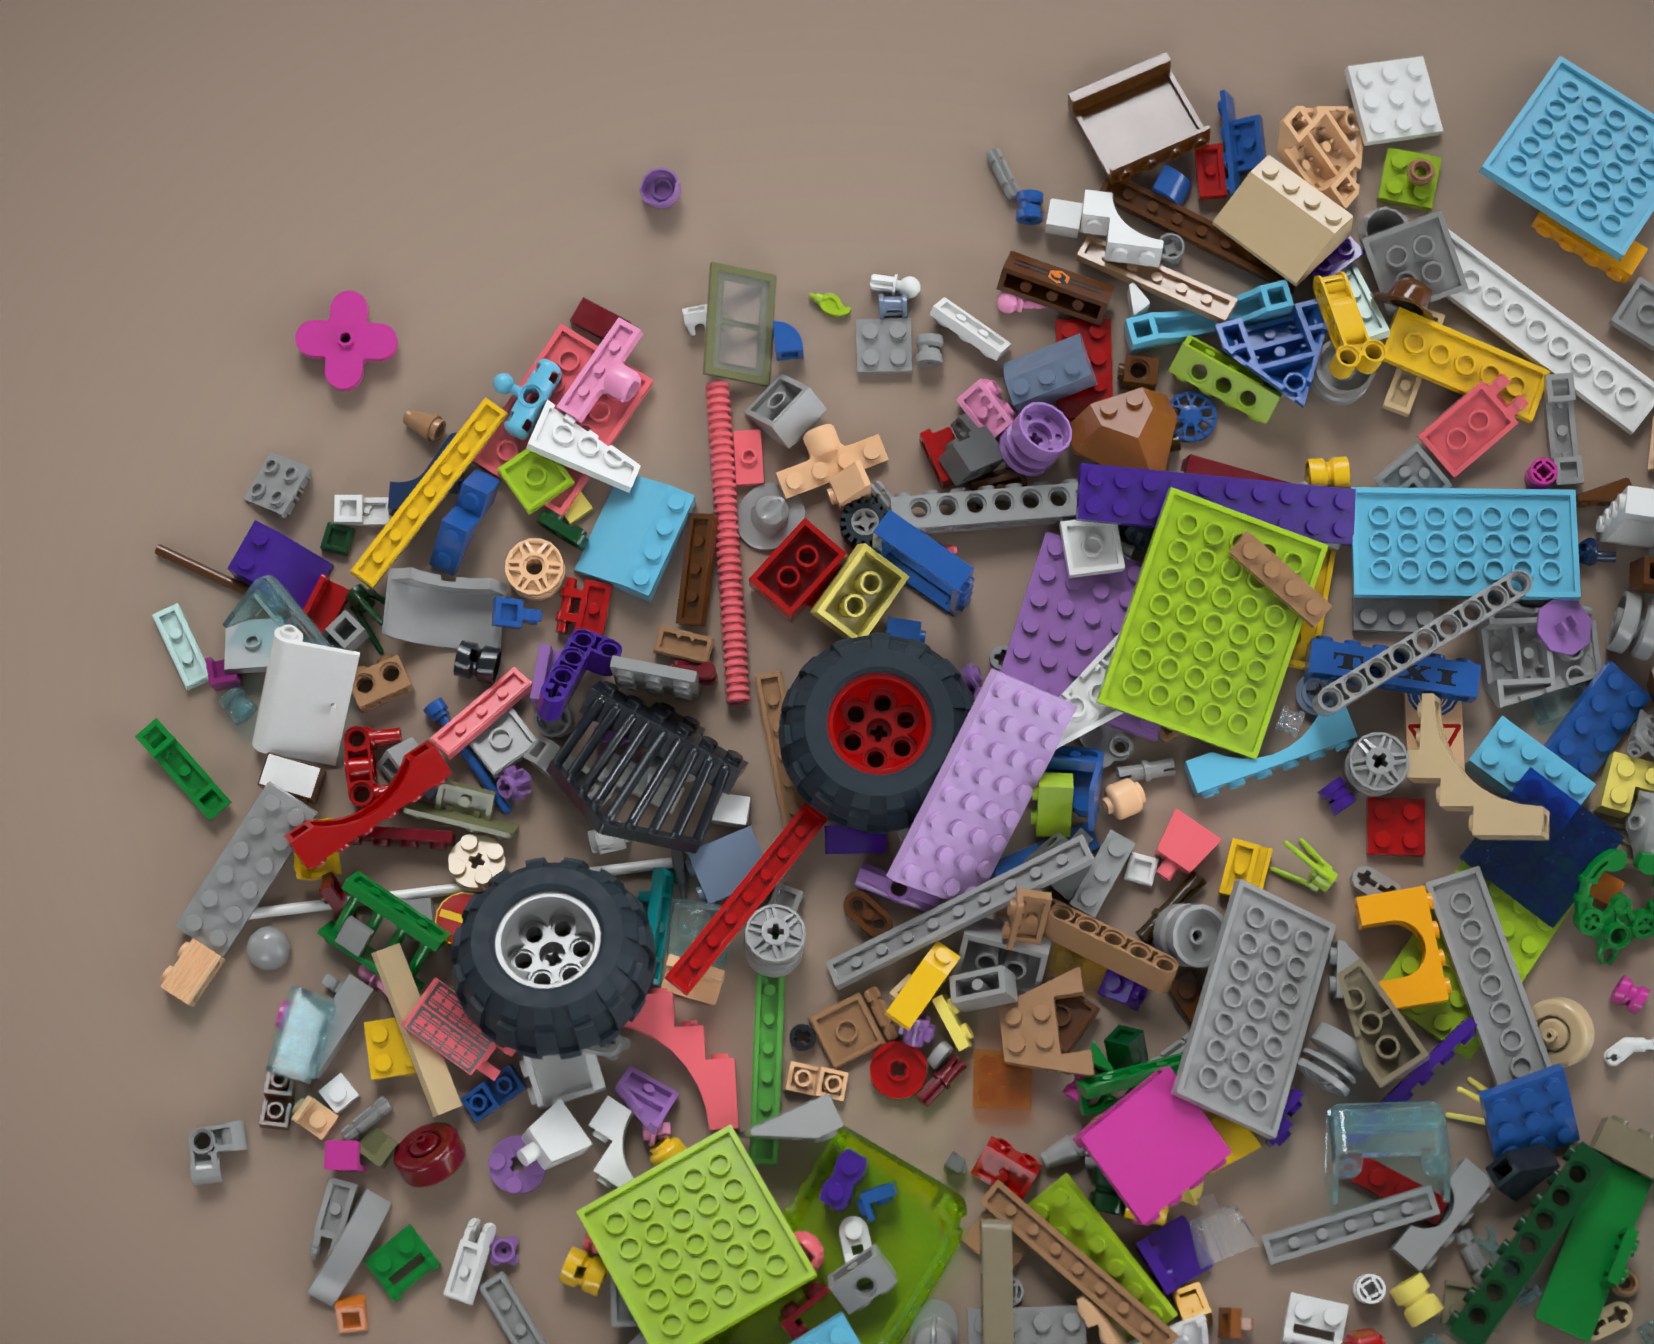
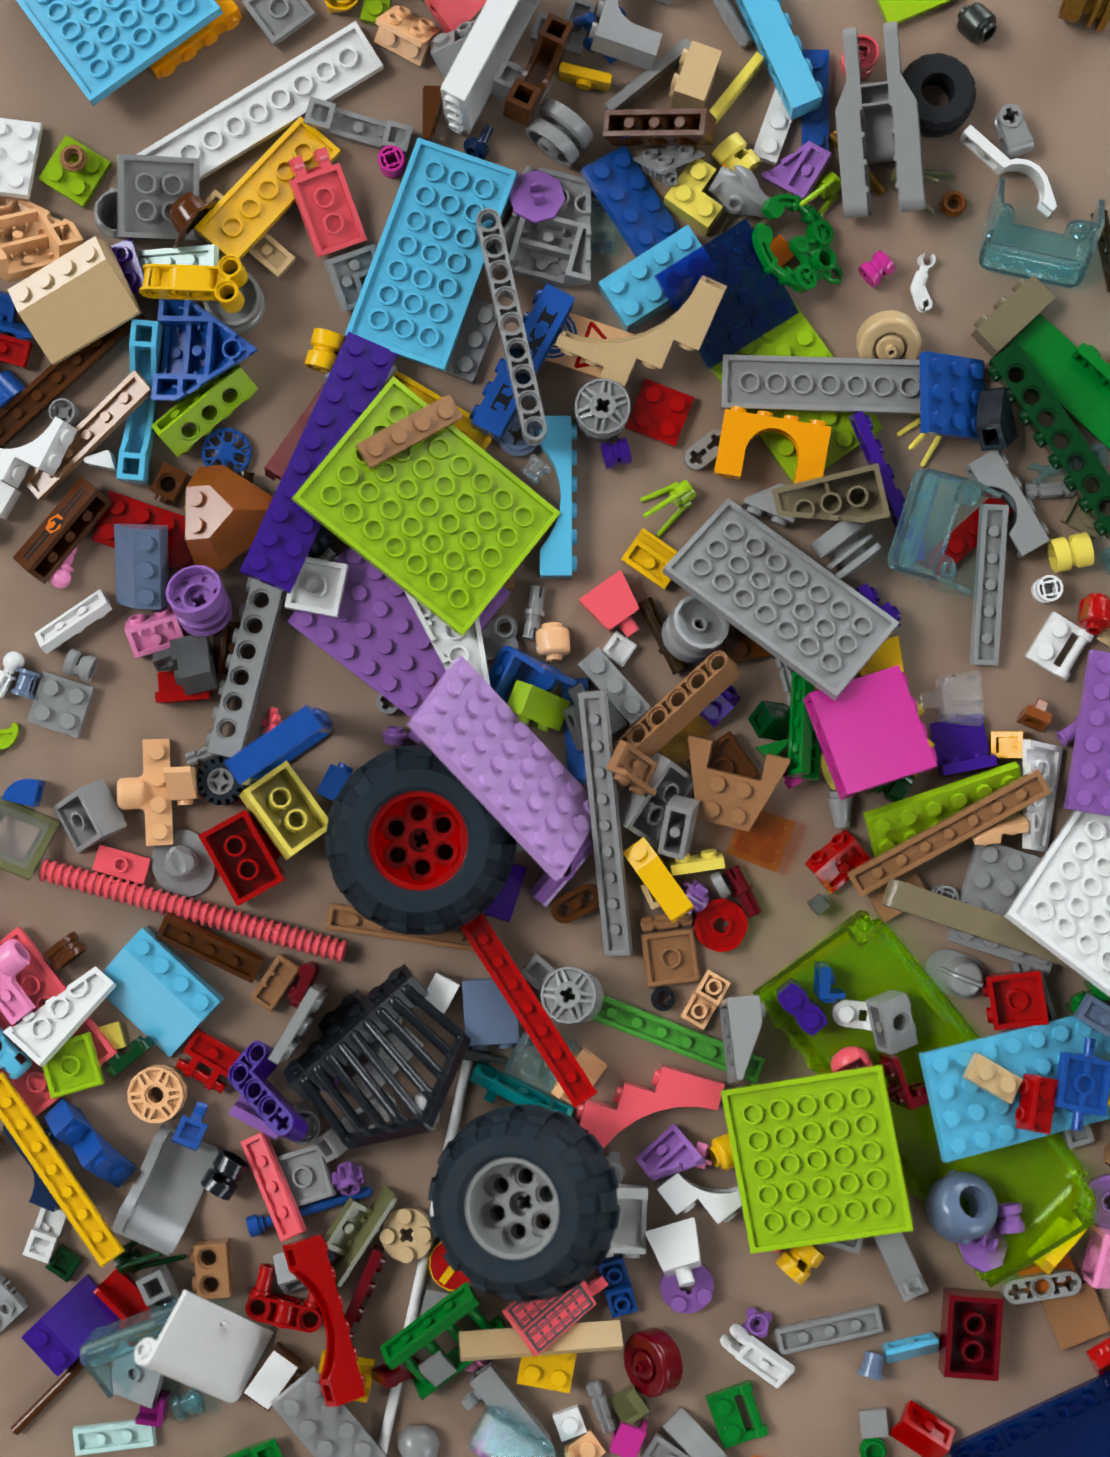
camera: 70 degrees left, 10 degrees up
(645, 433) = (65, 951): none -> reddish brown wheel

